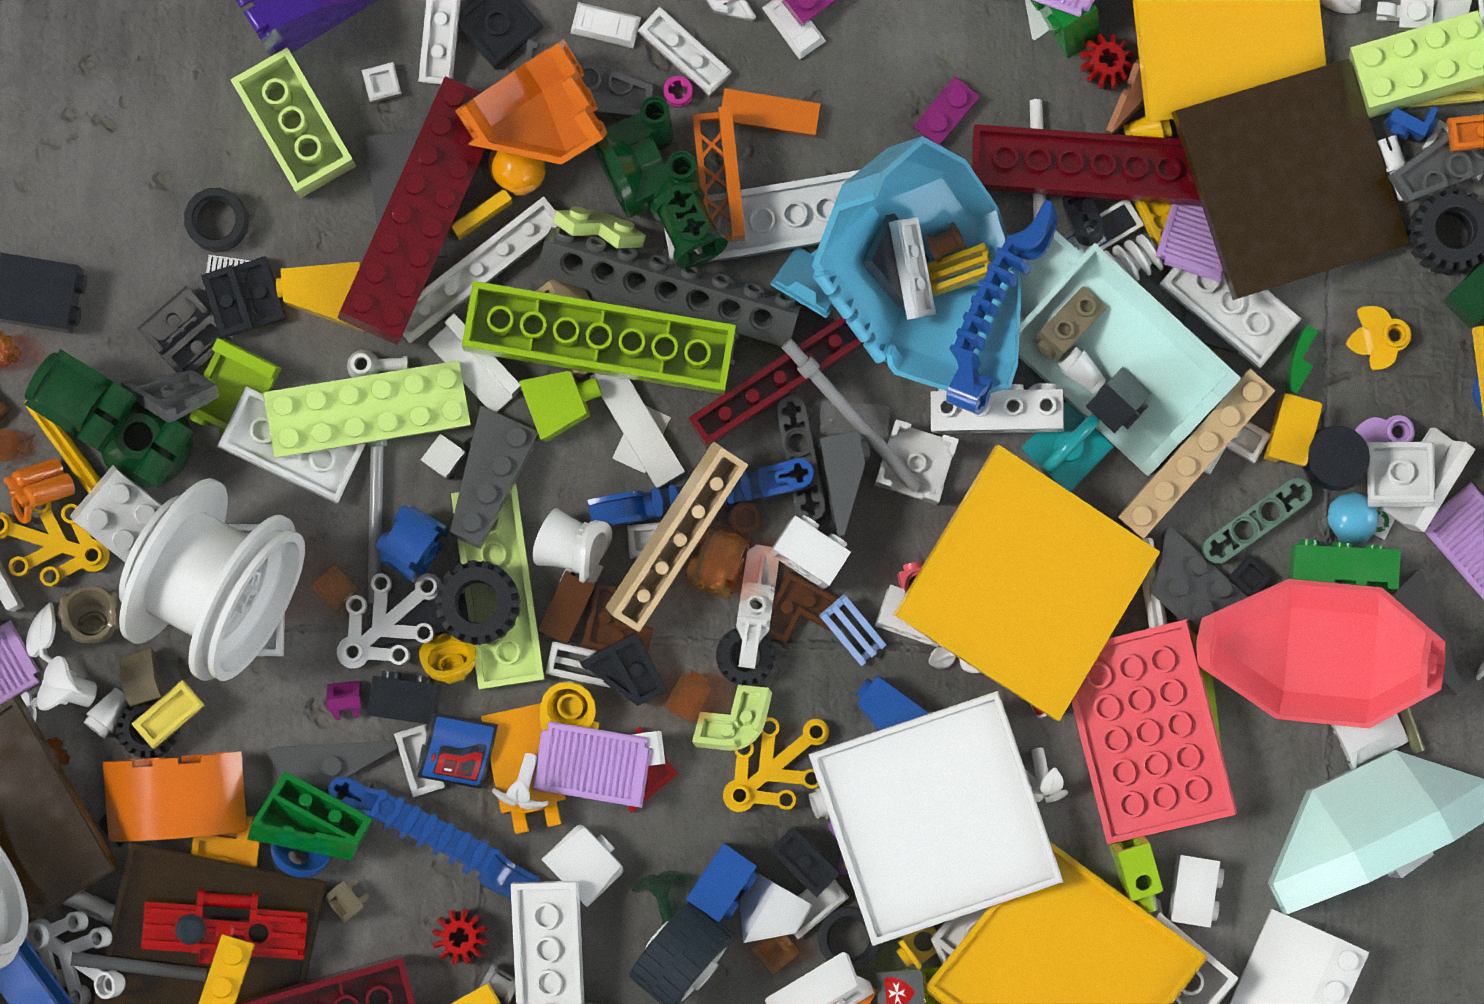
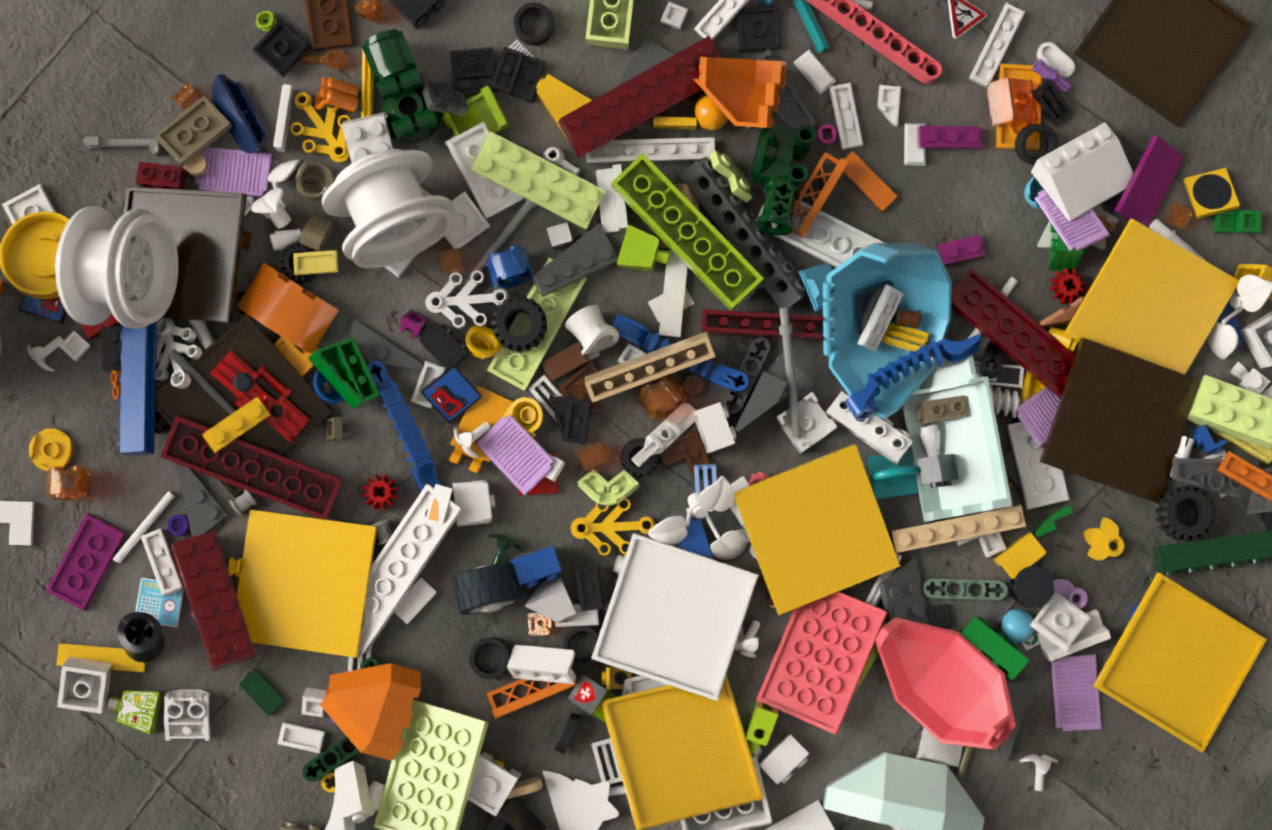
camera: 40 degrees right, 0 degrees up
(318, 524) = (467, 222): none -> white tile
(544, 897) = (438, 504): none -> white sticker
(880, 634) = (715, 497): none -> white plant

